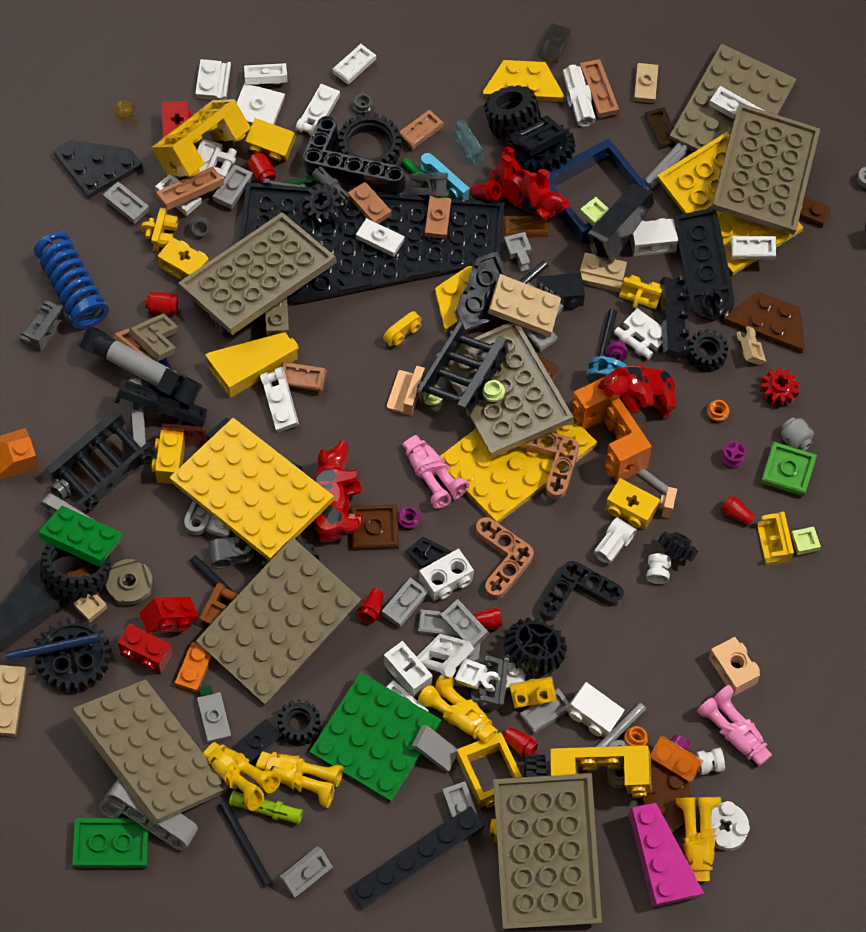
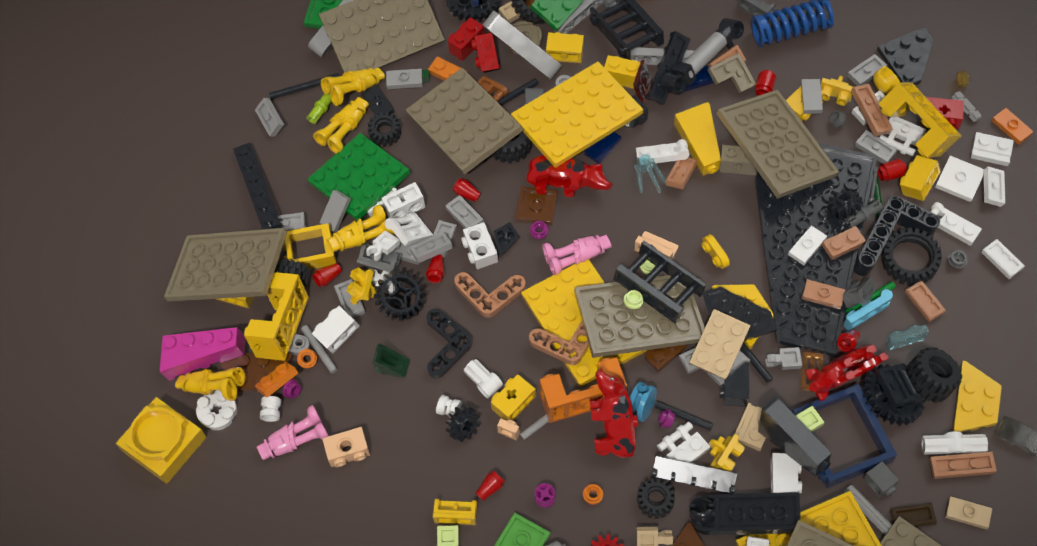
camera: 110 degrees right, 0 degrees up
(140, 530) = (565, 47): none -> yellow brick
(141, 180) = (885, 80): none -> yellow hair
(147, 581) = (522, 44): none -> light grey beam
(156, 107) = (969, 109): none -> light grey axle
(179, 62) = (1012, 126): none -> orange plate
(183, 246) = (811, 96): none -> light grey tile
(305, 409) = (646, 164): none -> clear light blue plant
(619, 644) = (390, 362): none -> clear green slope
(636, 152) = (881, 480): none -> dark grey brick
(782, 874) = (161, 440): none -> yellow container

